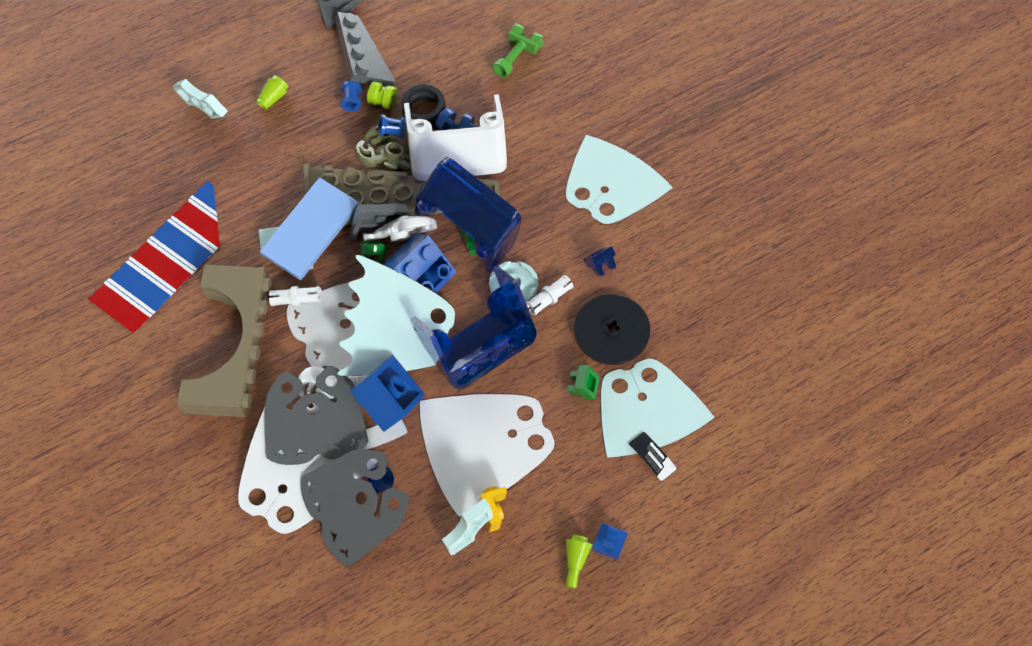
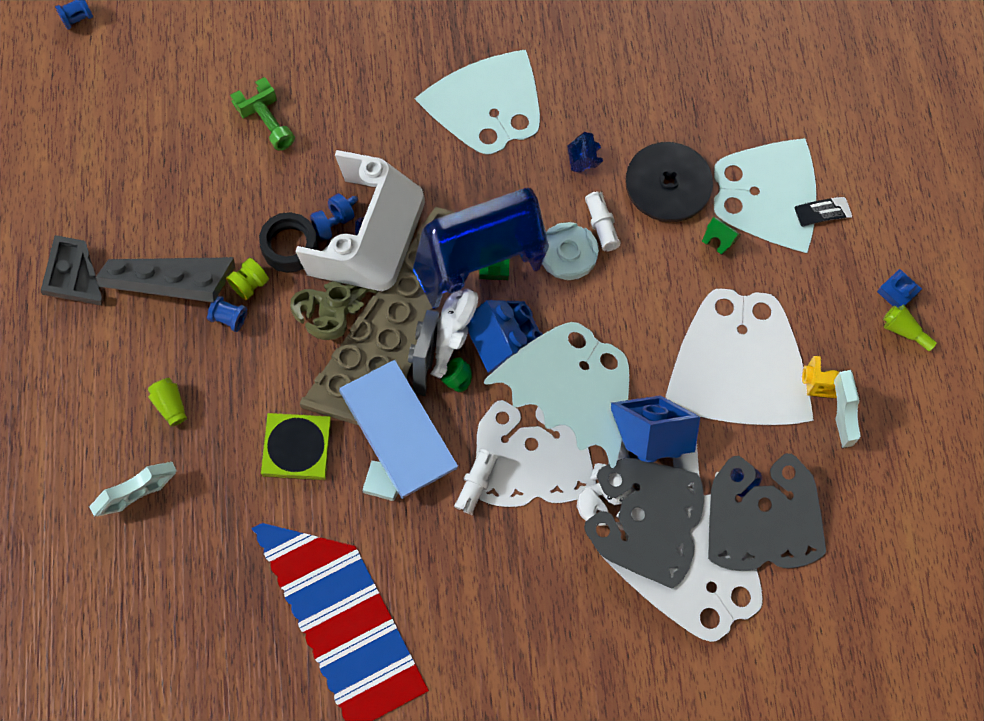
camera: 70 degrees left, 5 degrees up
(228, 388) = (446, 535): dark tan arch -> none
(275, 179) = (296, 446): none -> tile
(391, 126) = (305, 283): blue bush -> none
(487, 341) = (626, 299): clear blue windscreen -> none

